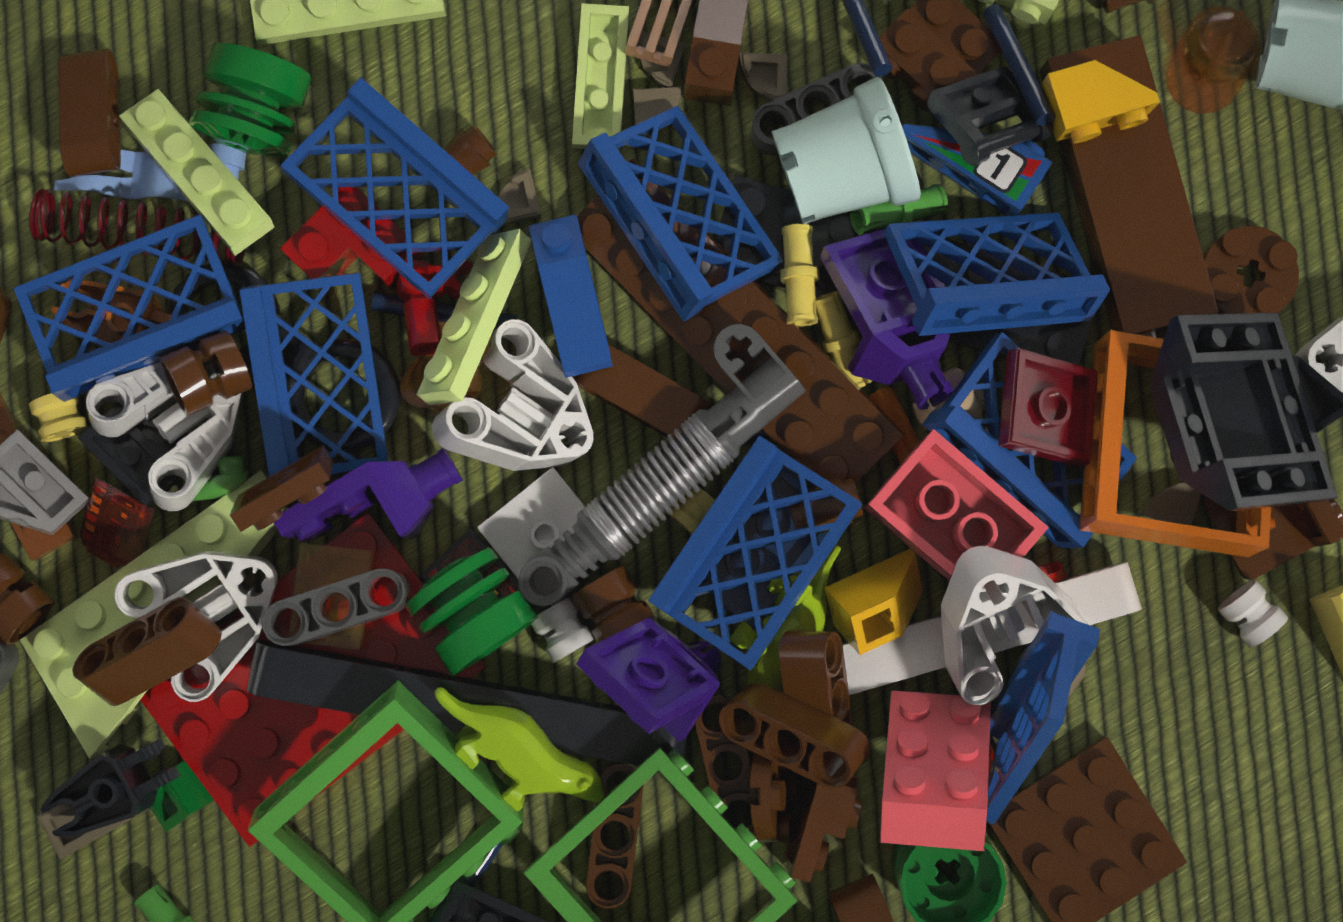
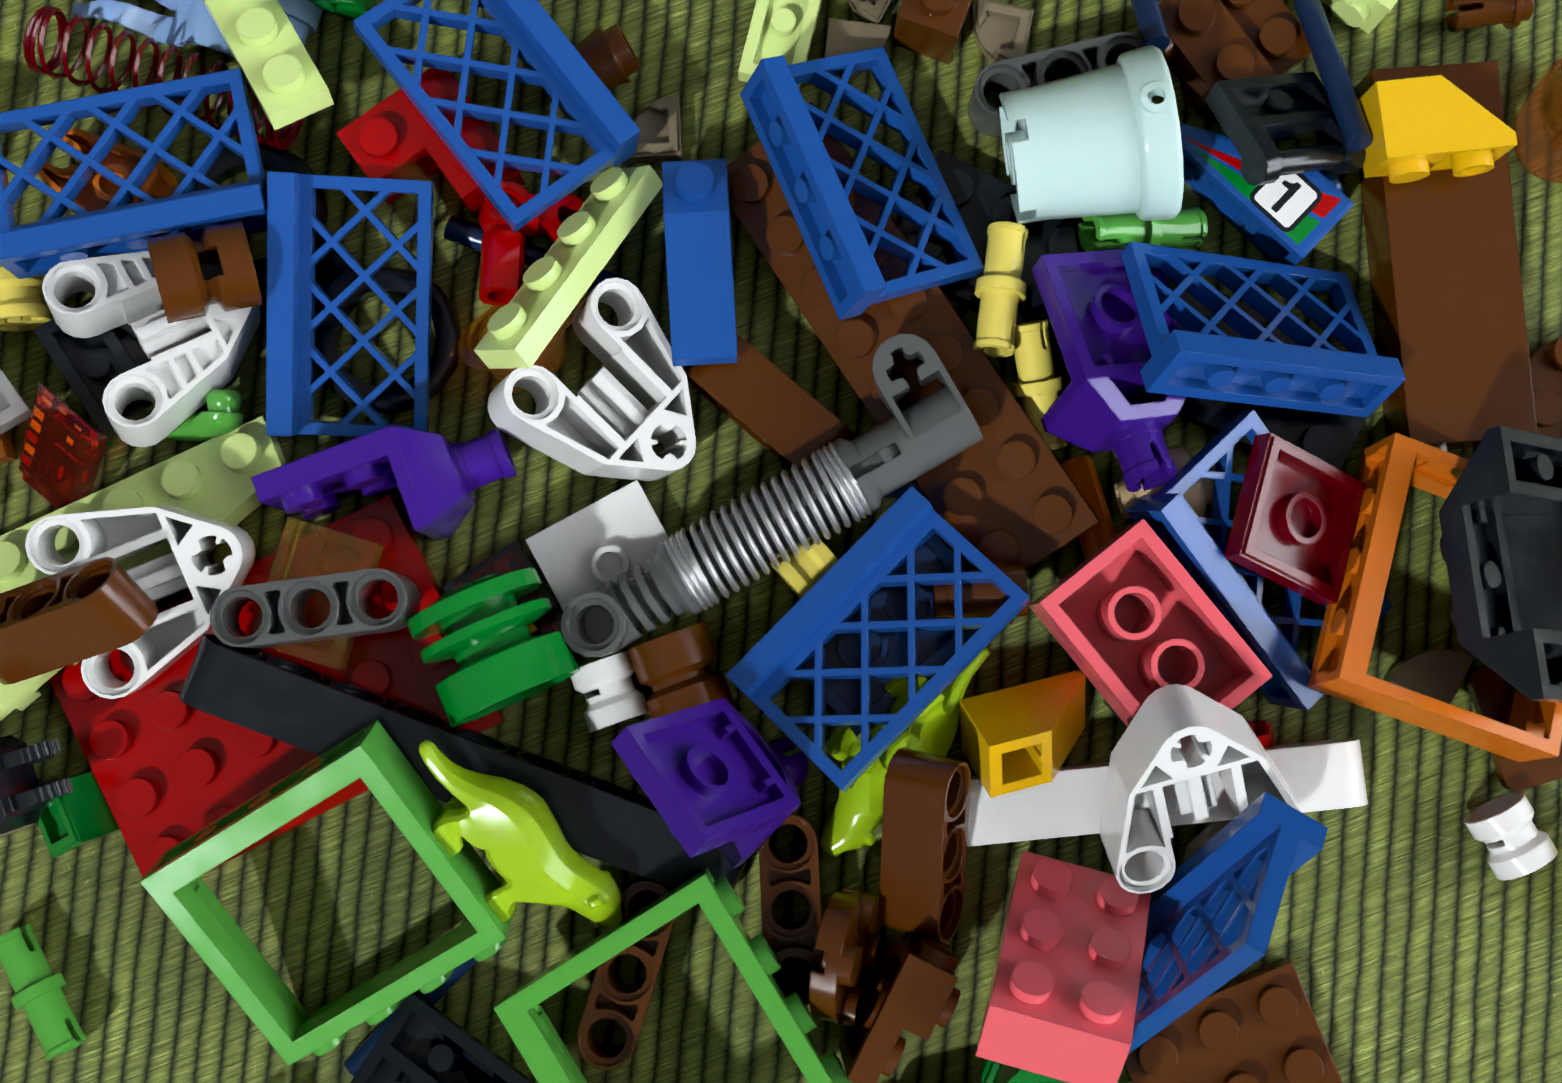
camera: 10 degrees right, 0 degrees up
(299, 480) = (255, 450): reddish brown plate -> none
(817, 737) = (887, 890): reddish brown beam -> none

